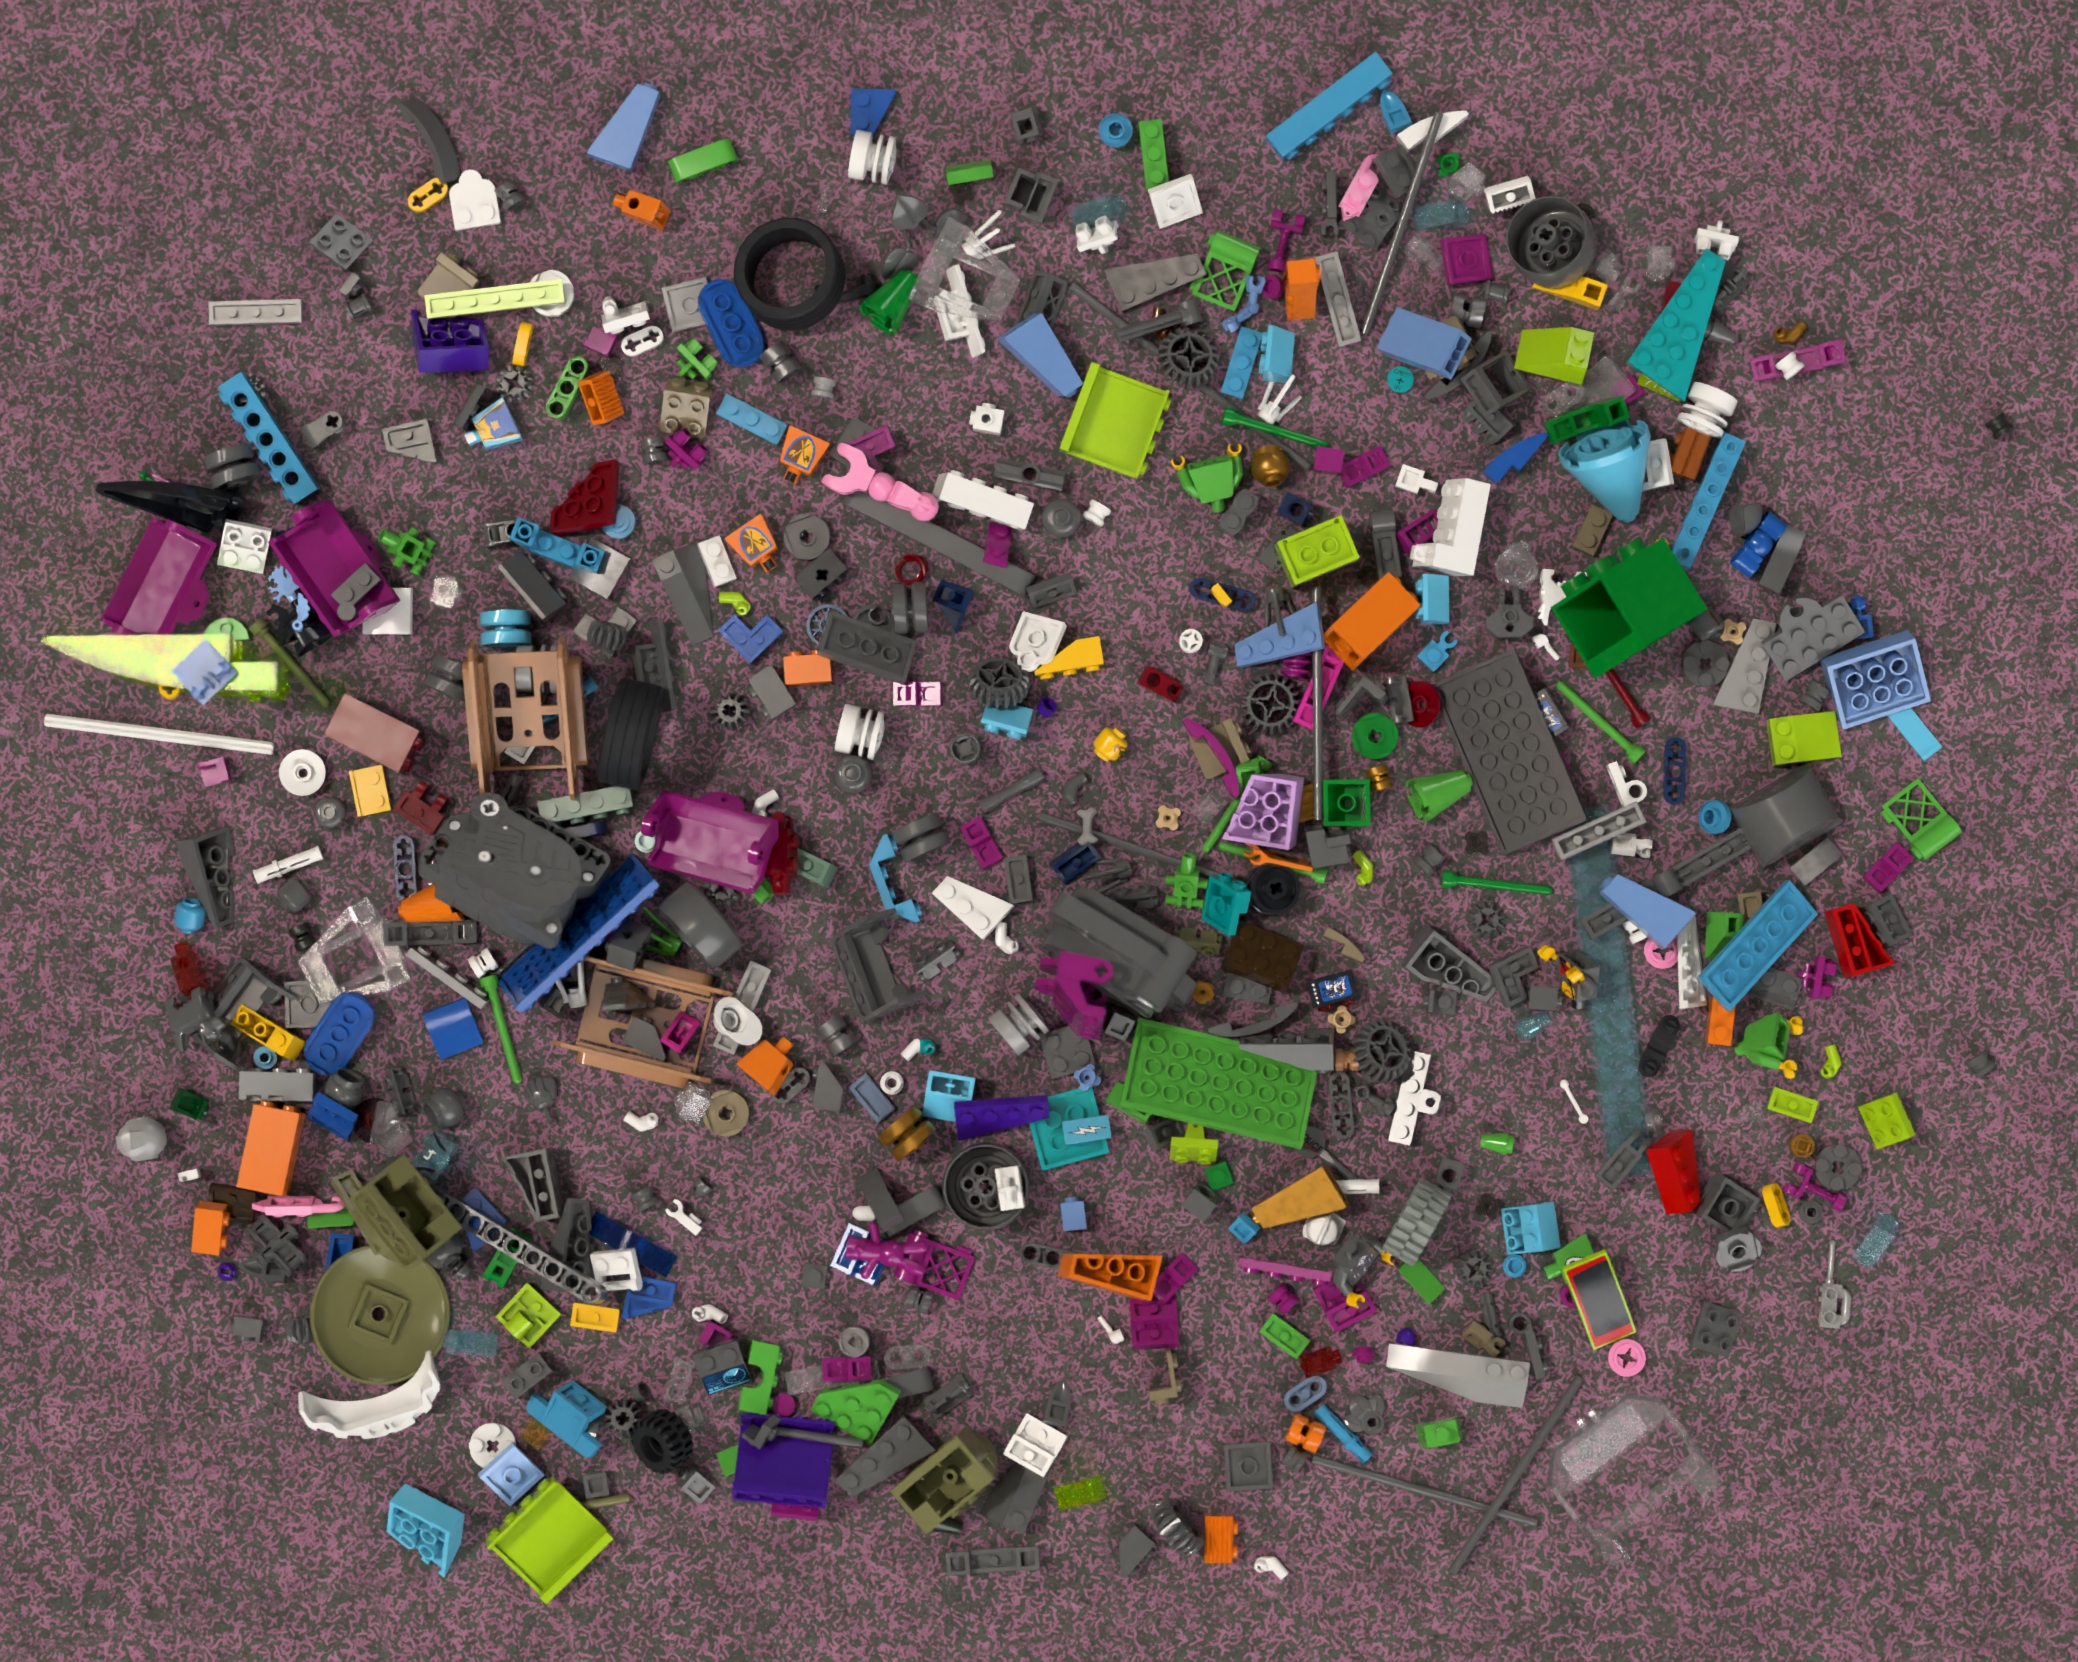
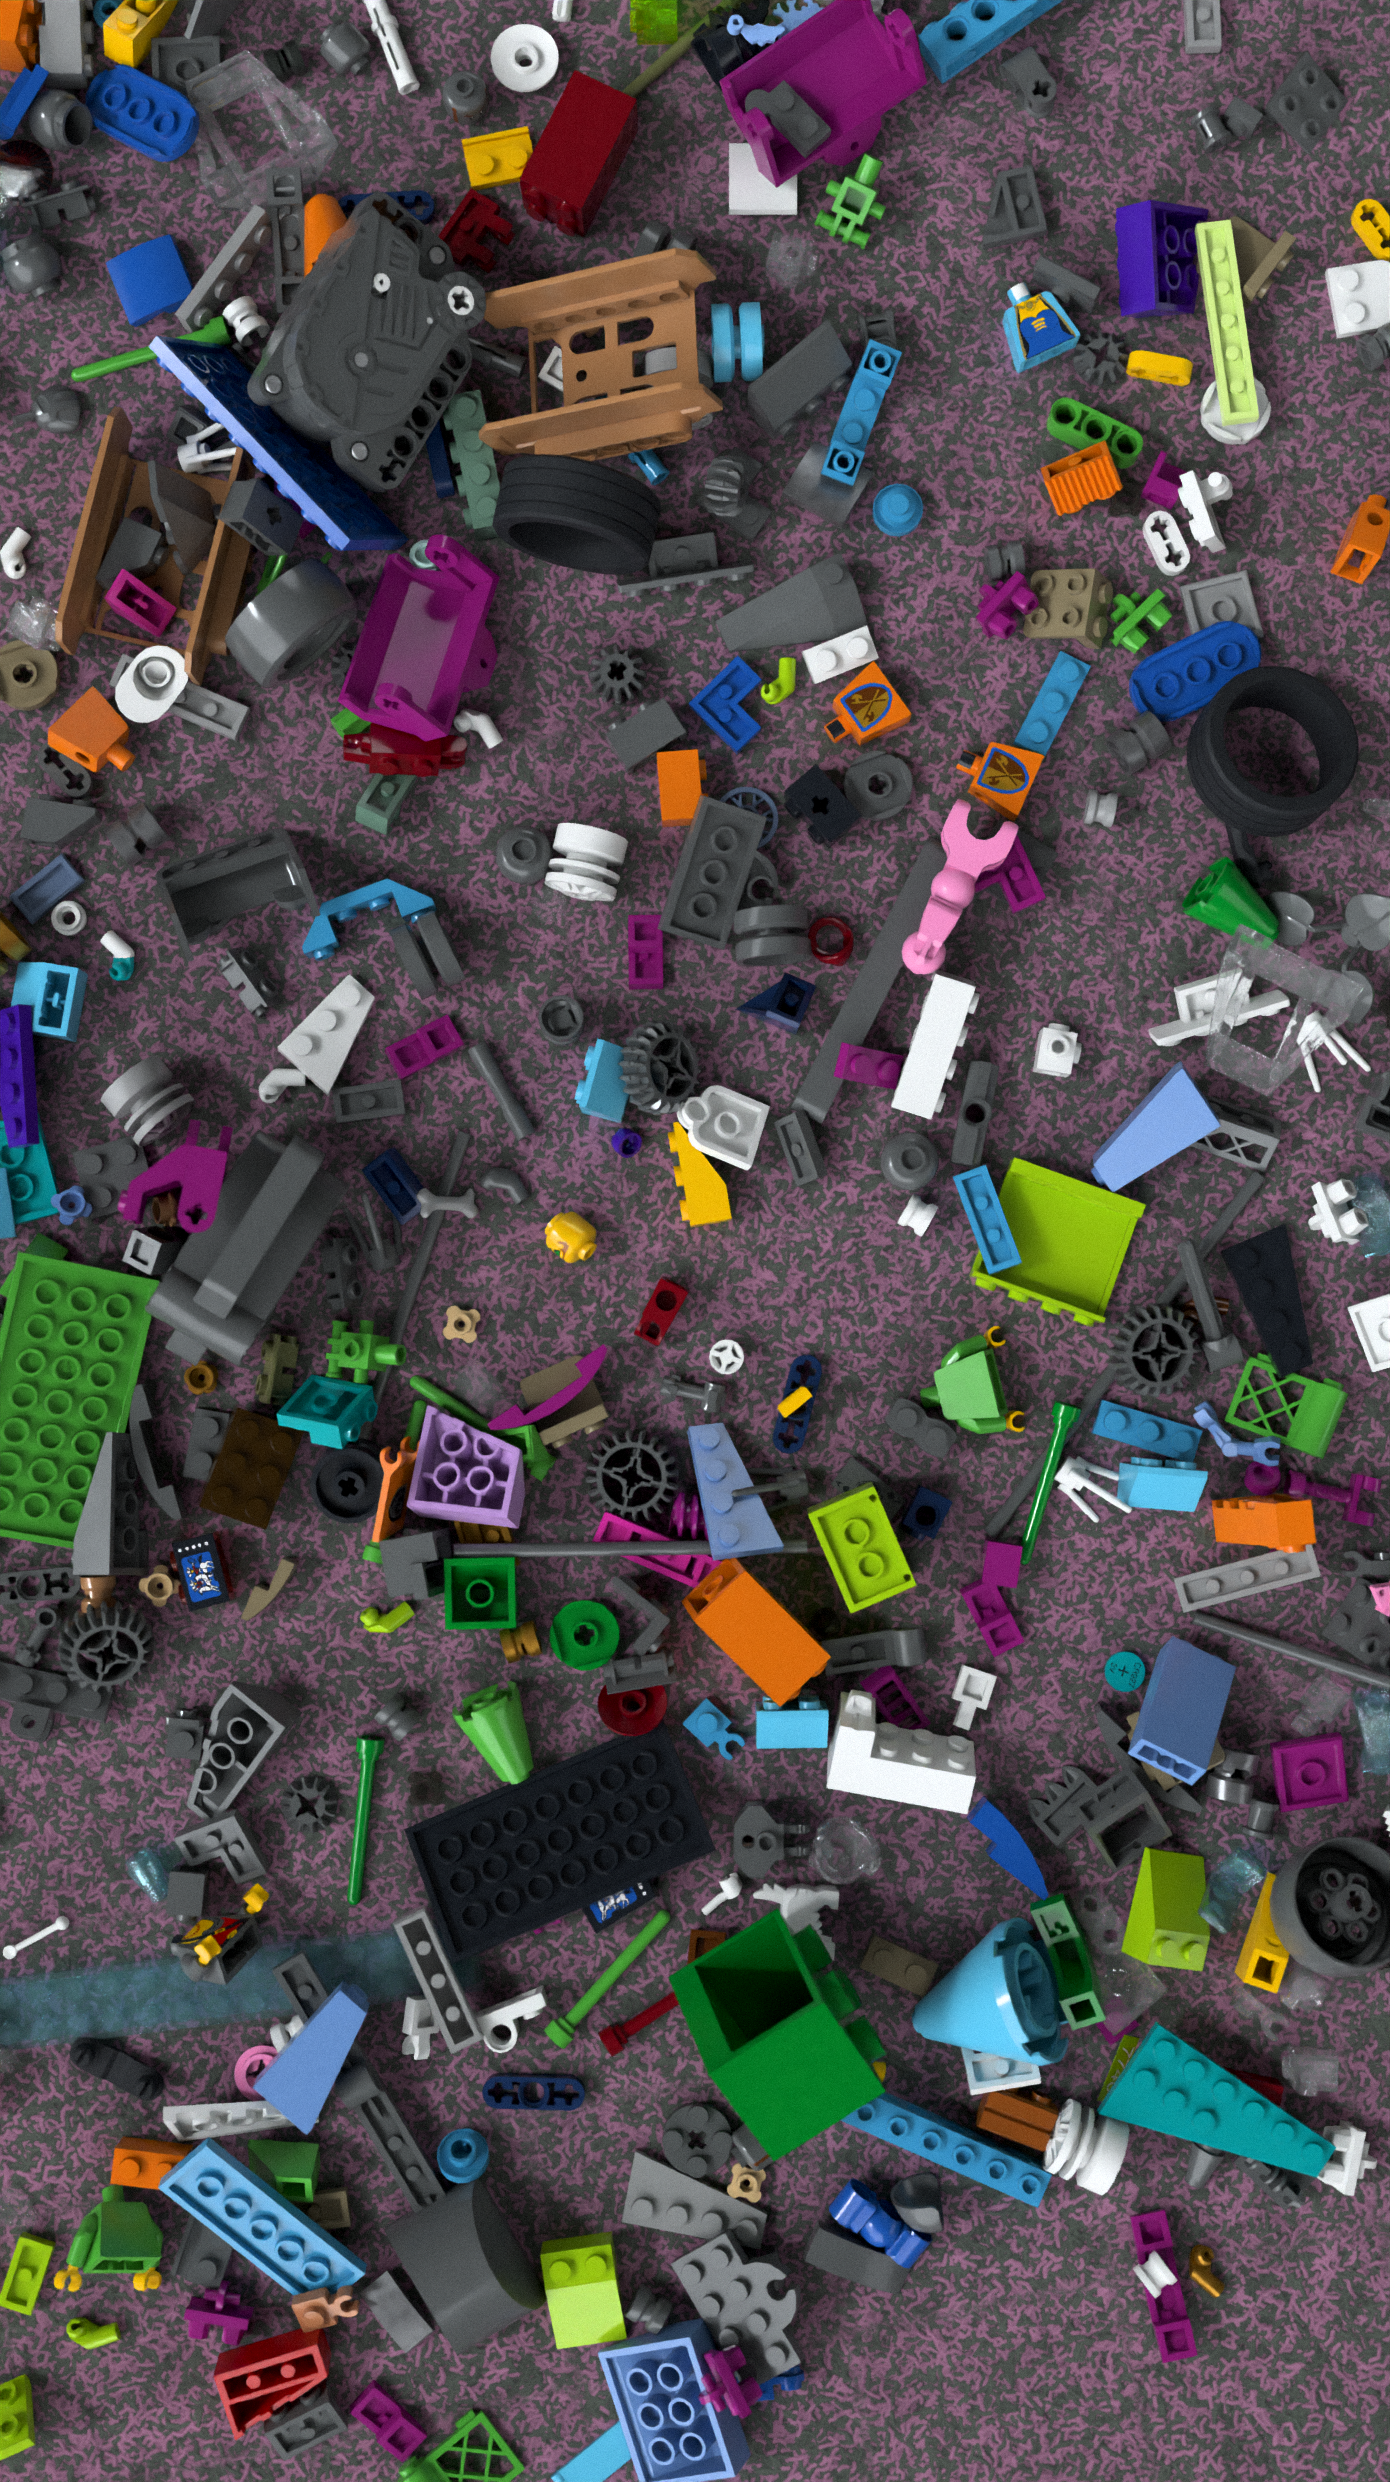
camera: 85 degrees right, 0 degrees up
(590, 504) = (925, 466): dark red plate -> none
(1100, 466) = (987, 1220): none -> dark azure plate
(1270, 465) = (991, 1475): pearl gold piece -> none
(1540, 314) = (1227, 1885): none -> clear light blue bracket
(1813, 910) = (320, 2309): none -> nougat plate
(1855, 645) = (737, 2396): none -> magenta hips

